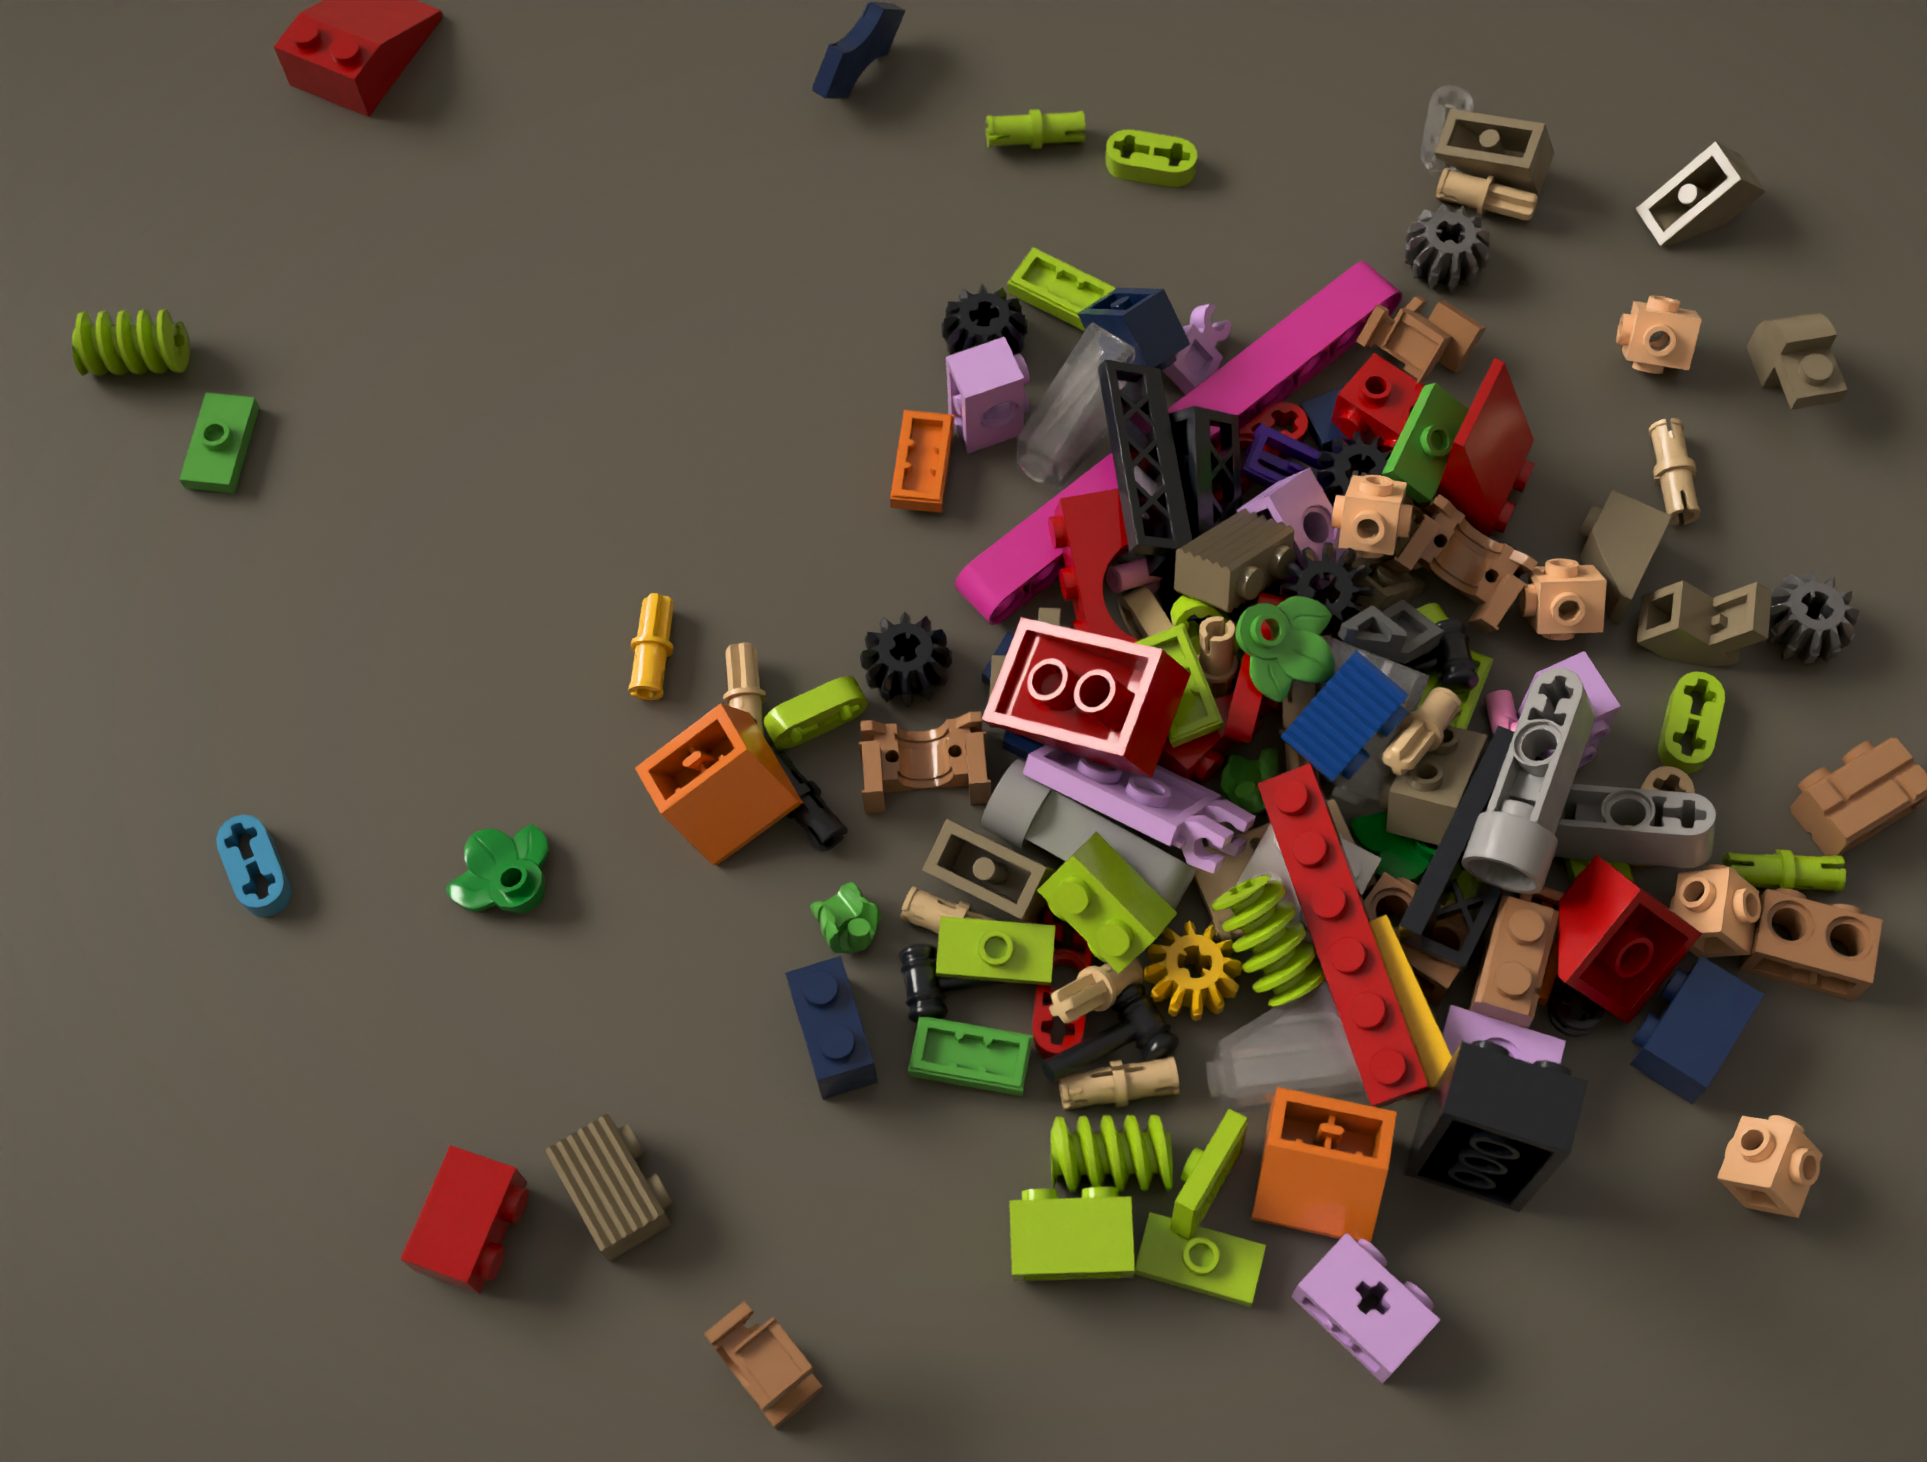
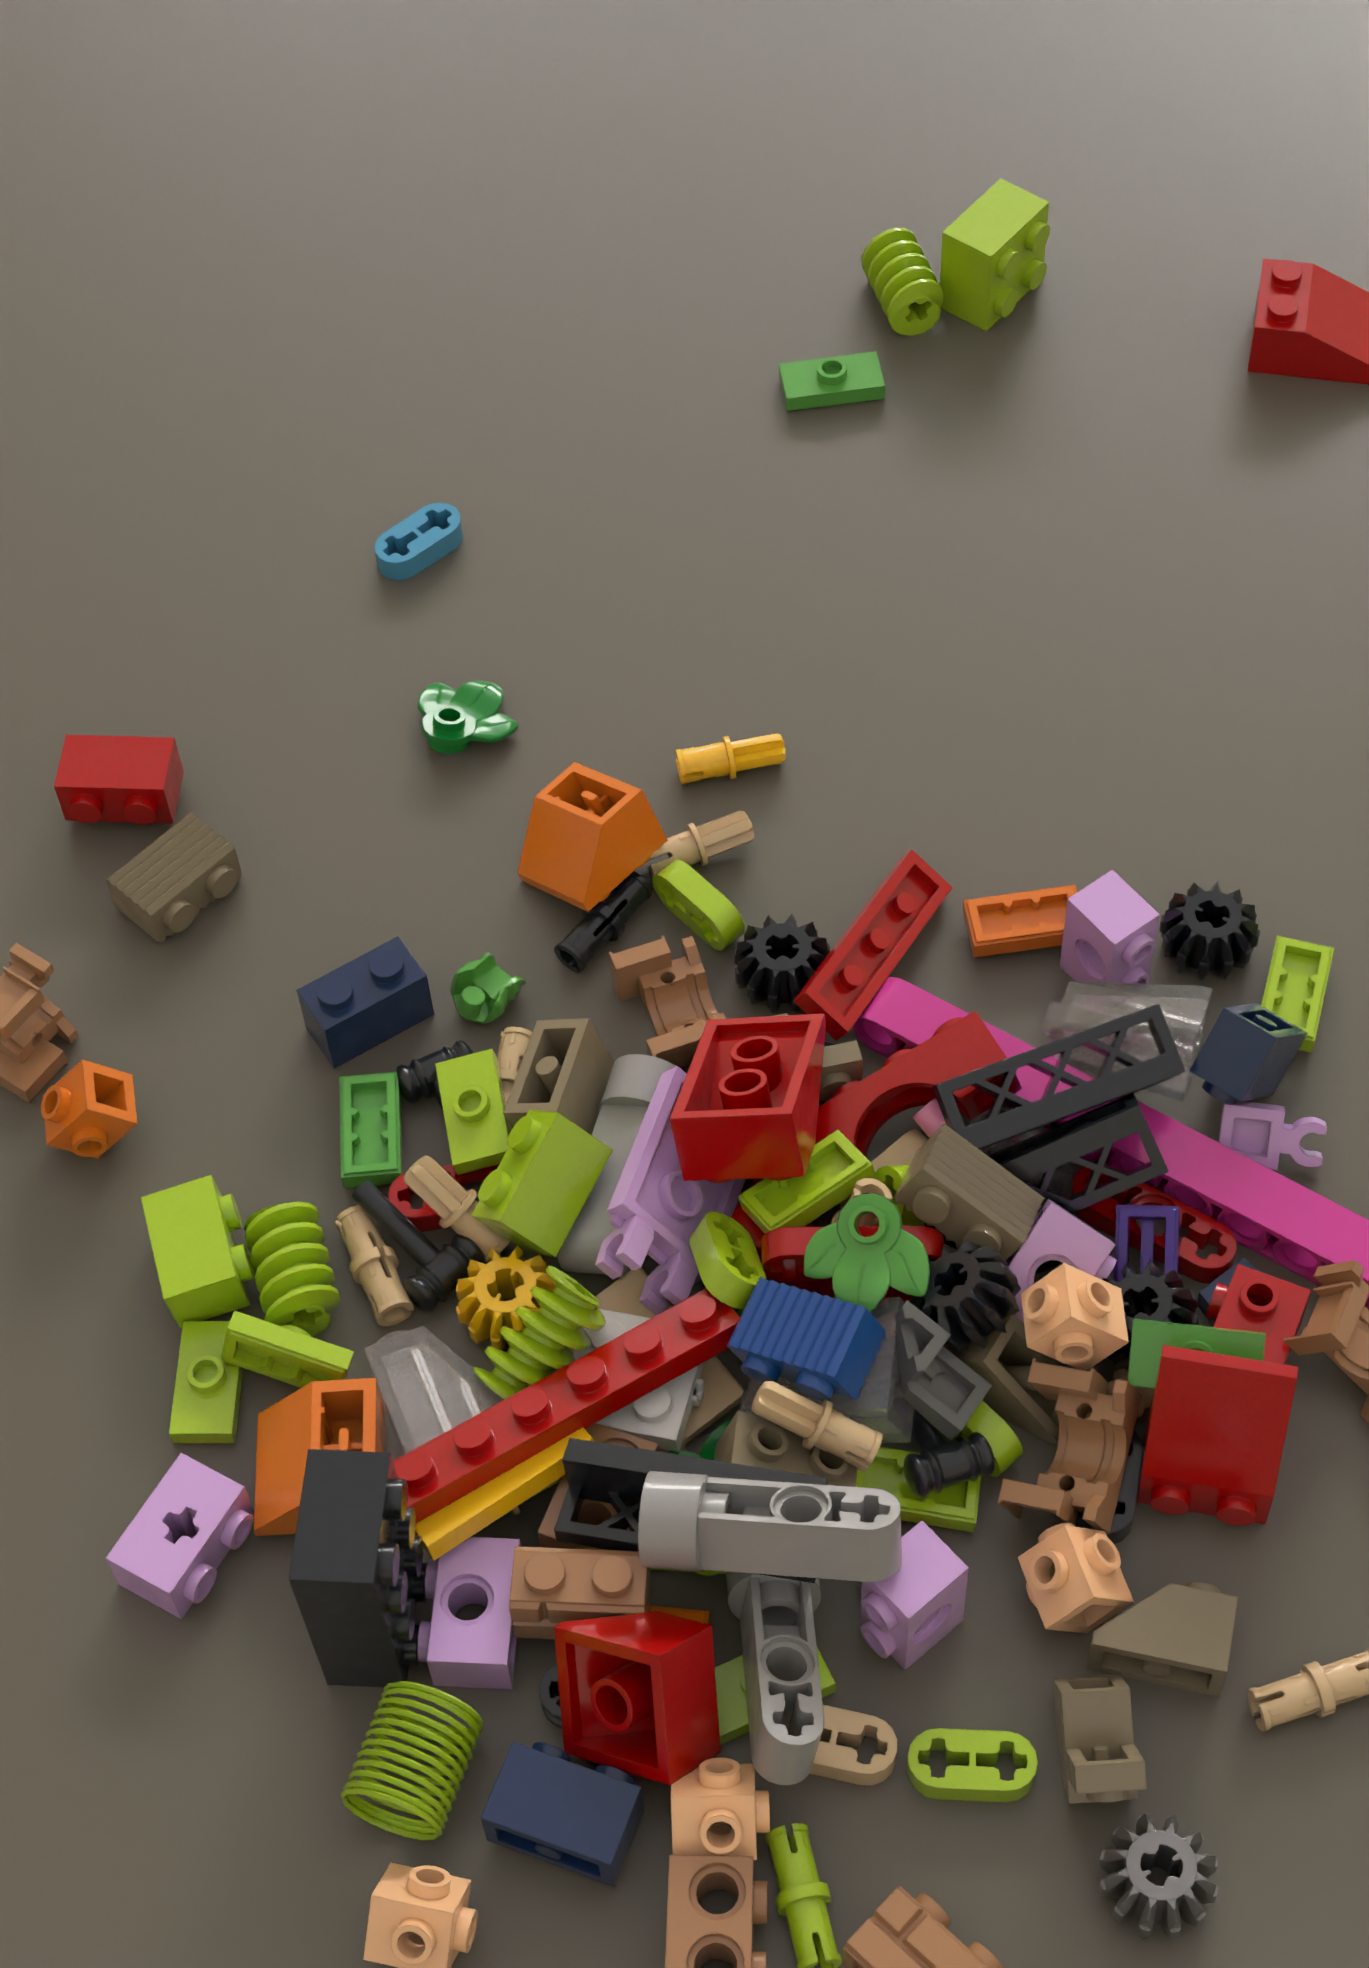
camera: 75 degrees right, 10 degrees down
(151, 249) = (994, 254): none -> lime brick
(879, 1316) = (89, 1109): none -> orange brick
(919, 578) = (873, 944): none -> red plate
(1237, 764) = (726, 1259): none -> lime beam
(1673, 1160) = (426, 1728): none -> lime piece

